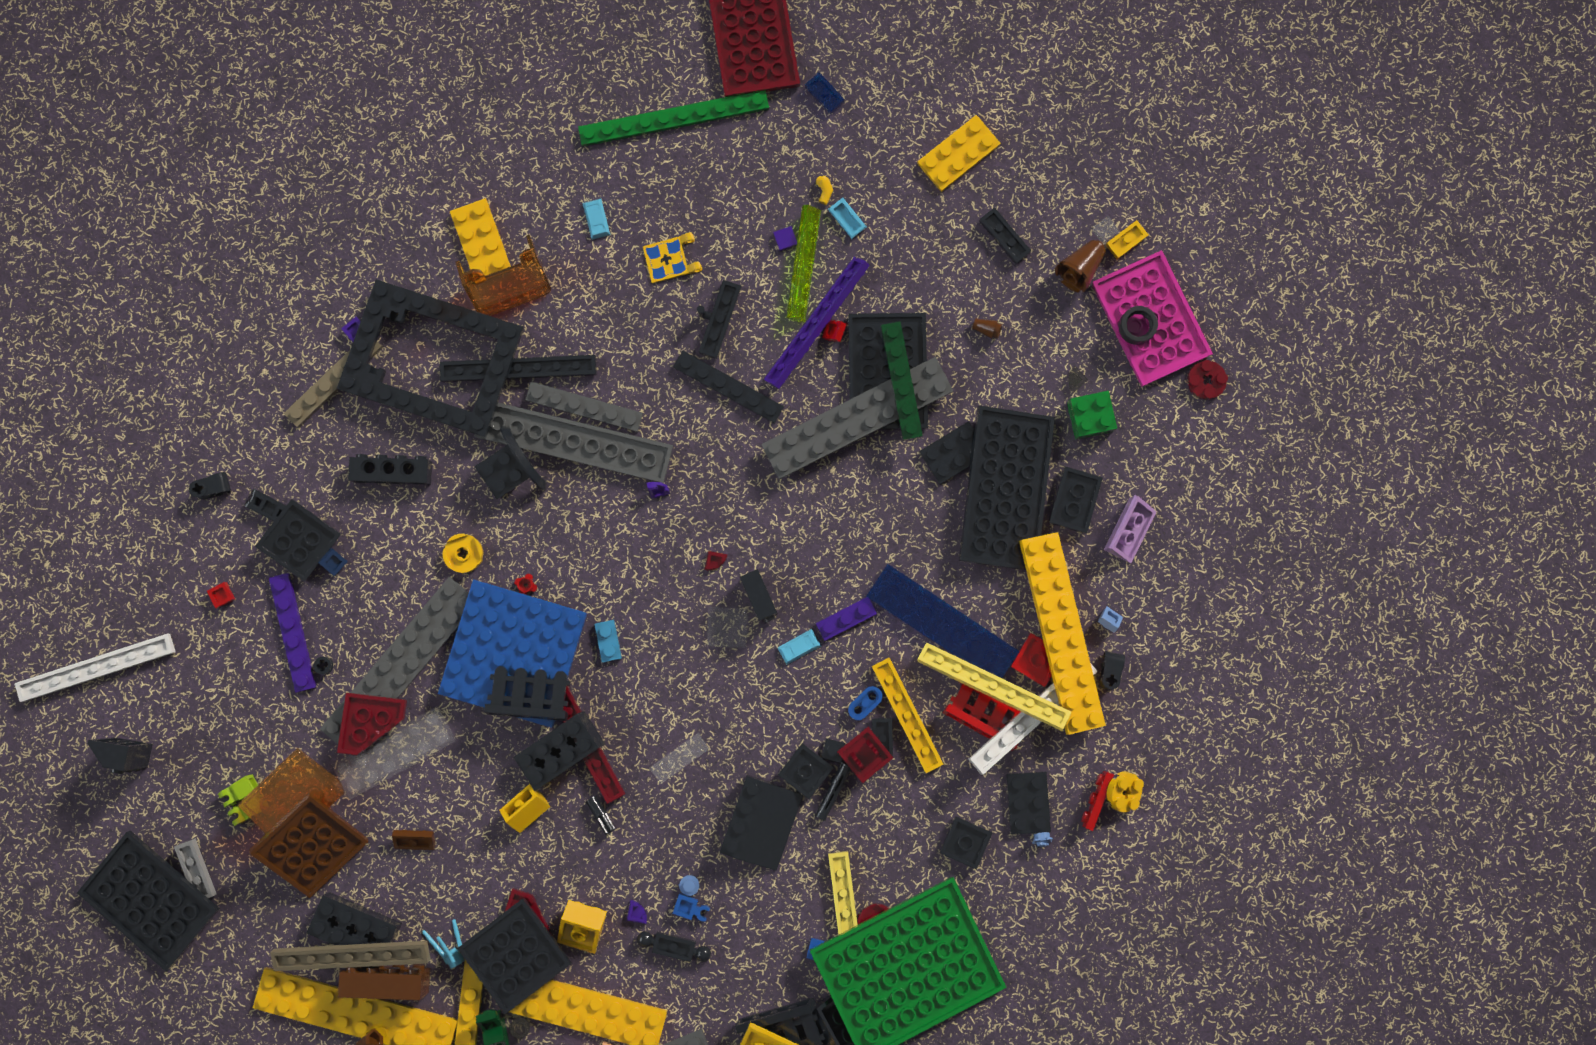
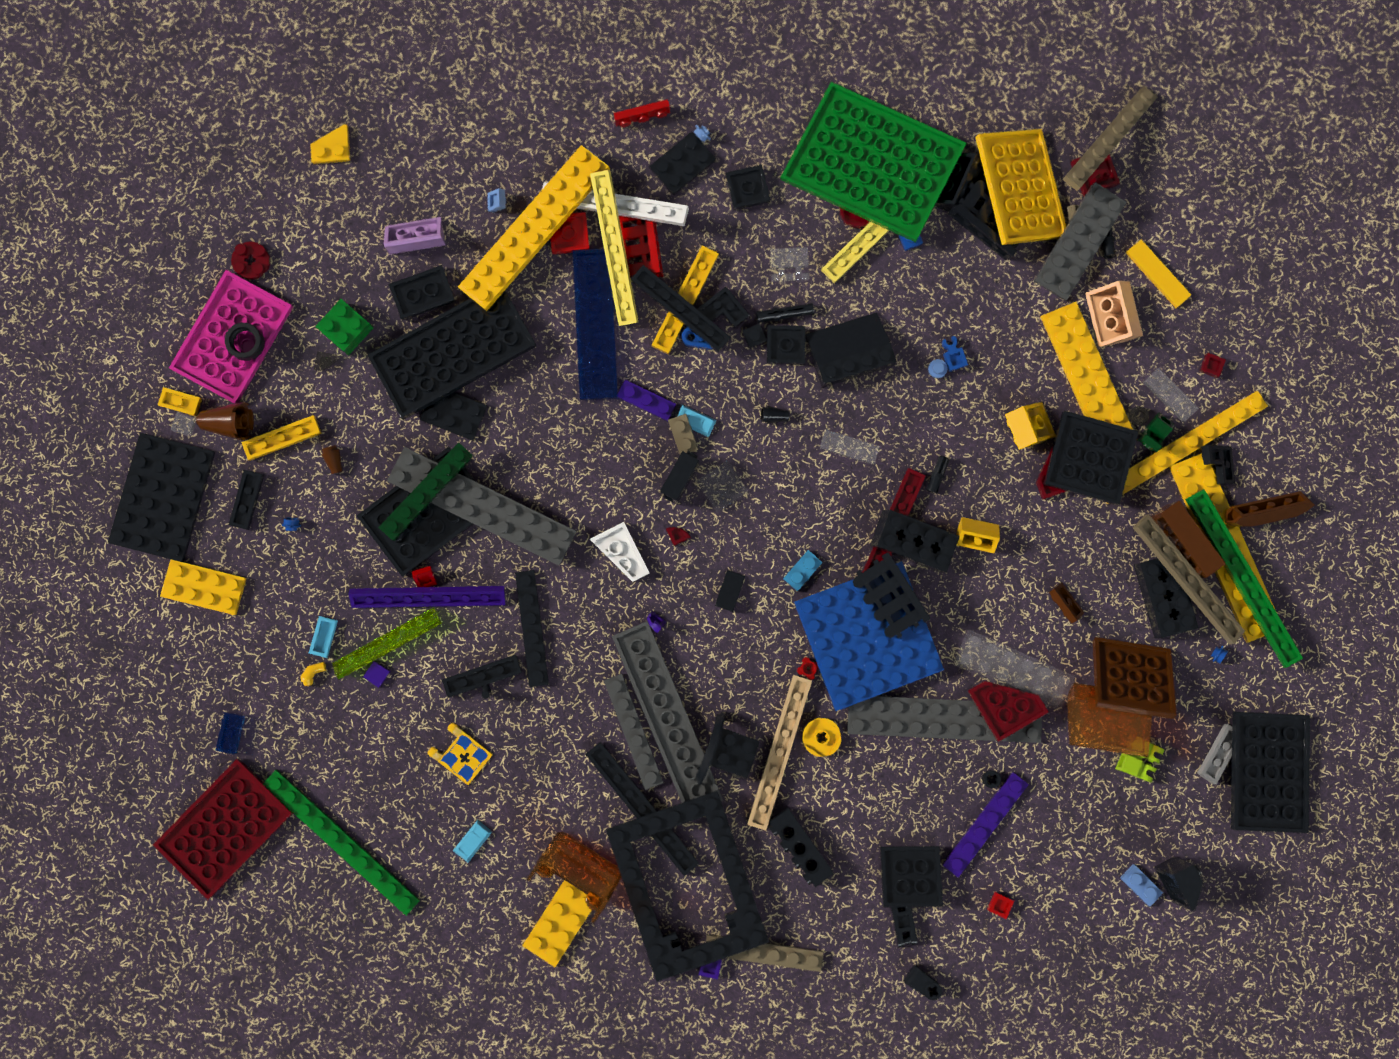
camera: 130 degrees left, 0 degrees up
(95, 667) = (1133, 960): white plate -> none
(146, 721) = (1141, 885): none -> medium blue plate
(273, 935) = (1219, 654): none -> blue plate
(316, 1006) = (1244, 579): none -> green plate
(332, 562) = (907, 835): dark blue plate -> none
(451, 957) = (1127, 506): medium azure plant -> none
(477, 510) = (779, 752): none -> tan plate
(636, 568) = (729, 591): none -> black slope
(636, 913) = (988, 392): dark purple tile -> none
(673, 946) = (991, 346): black plate -> none
(736, 505) = (622, 551): none -> white wing
(754, 714) = (774, 415): none -> black cone
(794, 627) = (683, 434): none -> dark tan plate
(865, 754) = (739, 307): dark red plate -> none
(877, 830) = (786, 259): none -> clear plate
(900, 703) = (680, 309): none -> black plate
(958, 257) = (291, 523): none -> blue plate
(1036, 299) = (281, 438): none -> yellow plate
(1057, 171) = (161, 497): none -> black plate
(1113, 667) = (533, 173): black piece -> none
(1133, 787) = (612, 96): yellow plate -> none
(1258, 516) = (331, 147): none -> yellow wing

